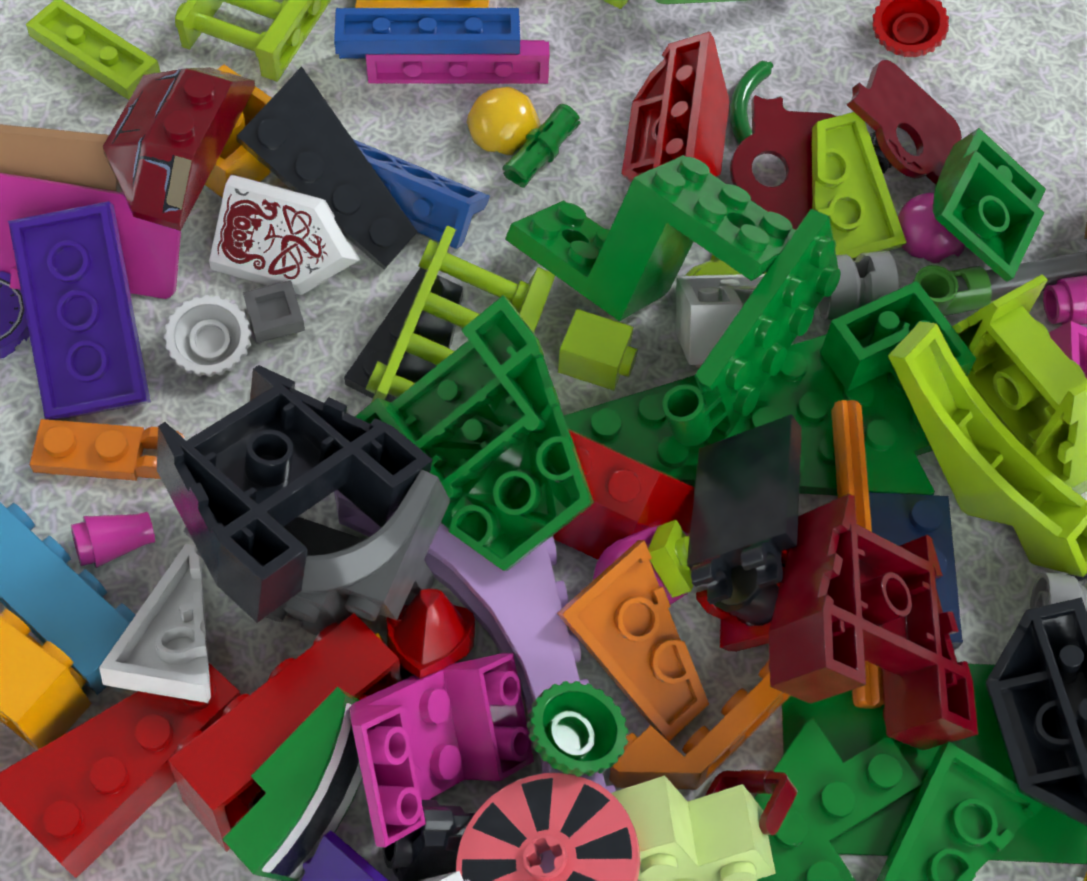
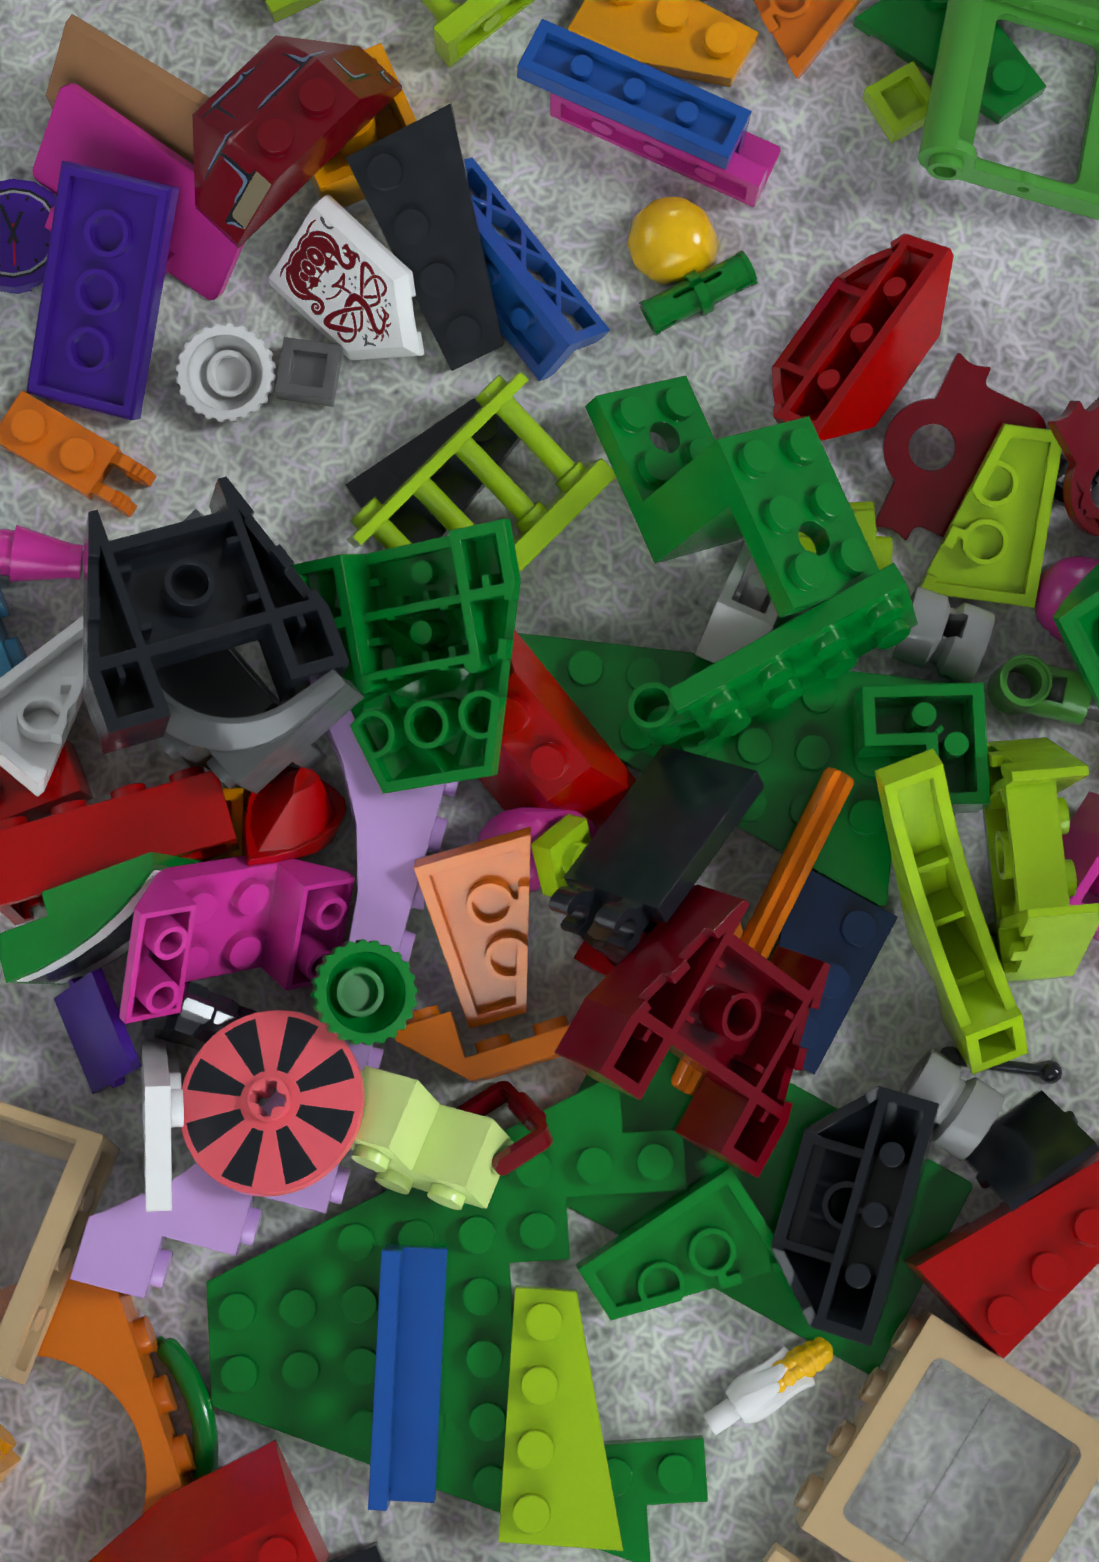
camera: 30 degrees right, 20 degrees up
(597, 350) = (621, 579): lime brick -> none
(741, 97) = (965, 328): green piece -> none

